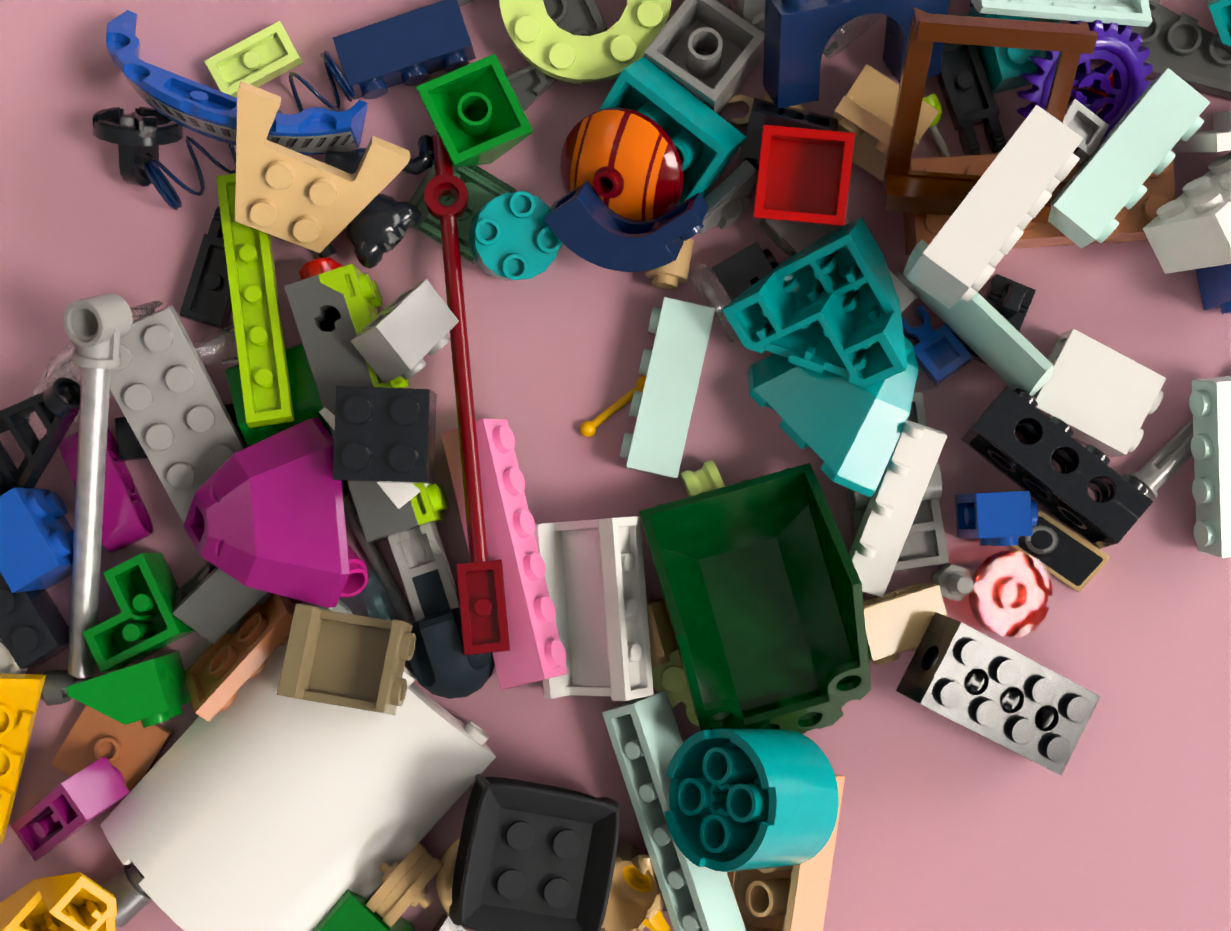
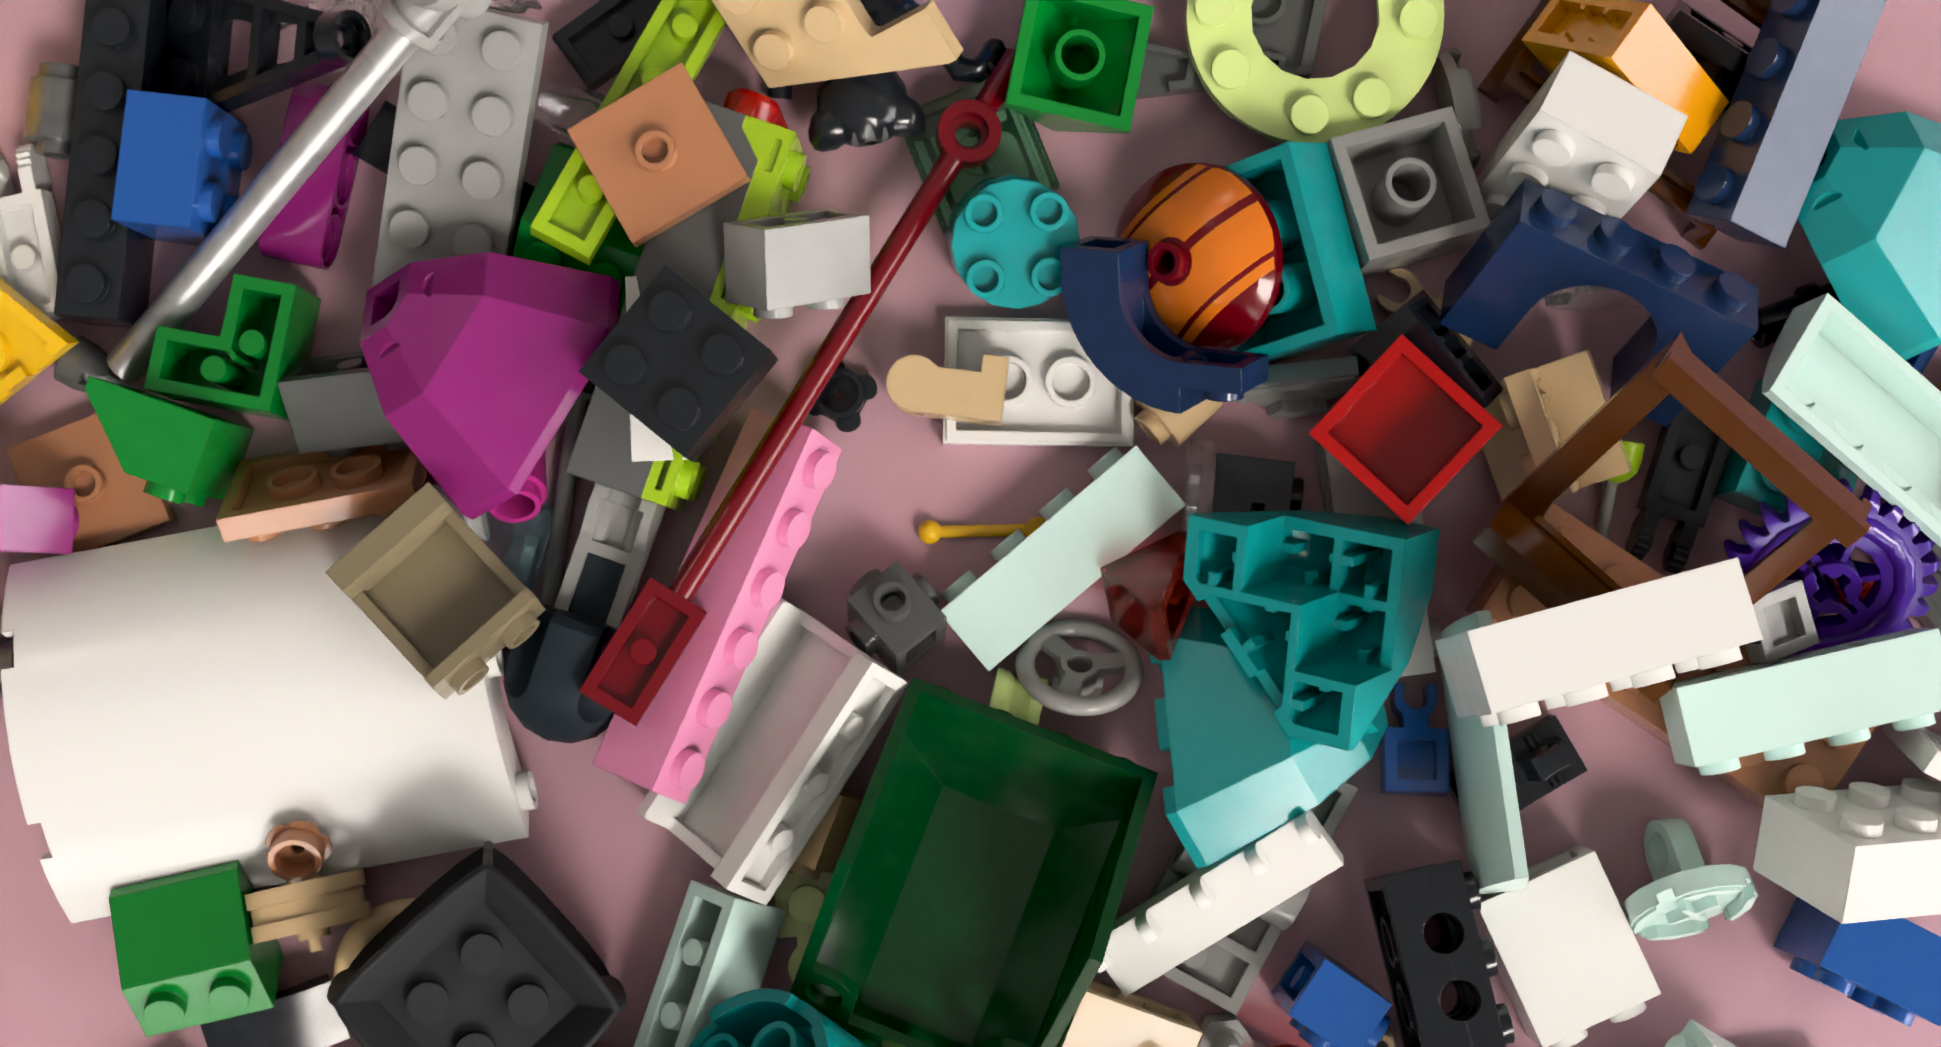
camera: 40 degrees right, 0 degrees up
(287, 331) = (658, 155): none -> nougat plate
(376, 867) = (297, 850): none -> nougat plate
(494, 397) = (846, 412): none -> black plate
(533, 350) = (950, 393): none -> tan leg
(582, 310) = (1051, 386): none -> white tile
(604, 487) = (895, 616): none -> dark grey brick
(726, 443) = (1078, 673): none -> light grey piece
(732, 370) = (1149, 594): none -> clear red slope
(1134, 312) = (1682, 886): none -> light aqua tile

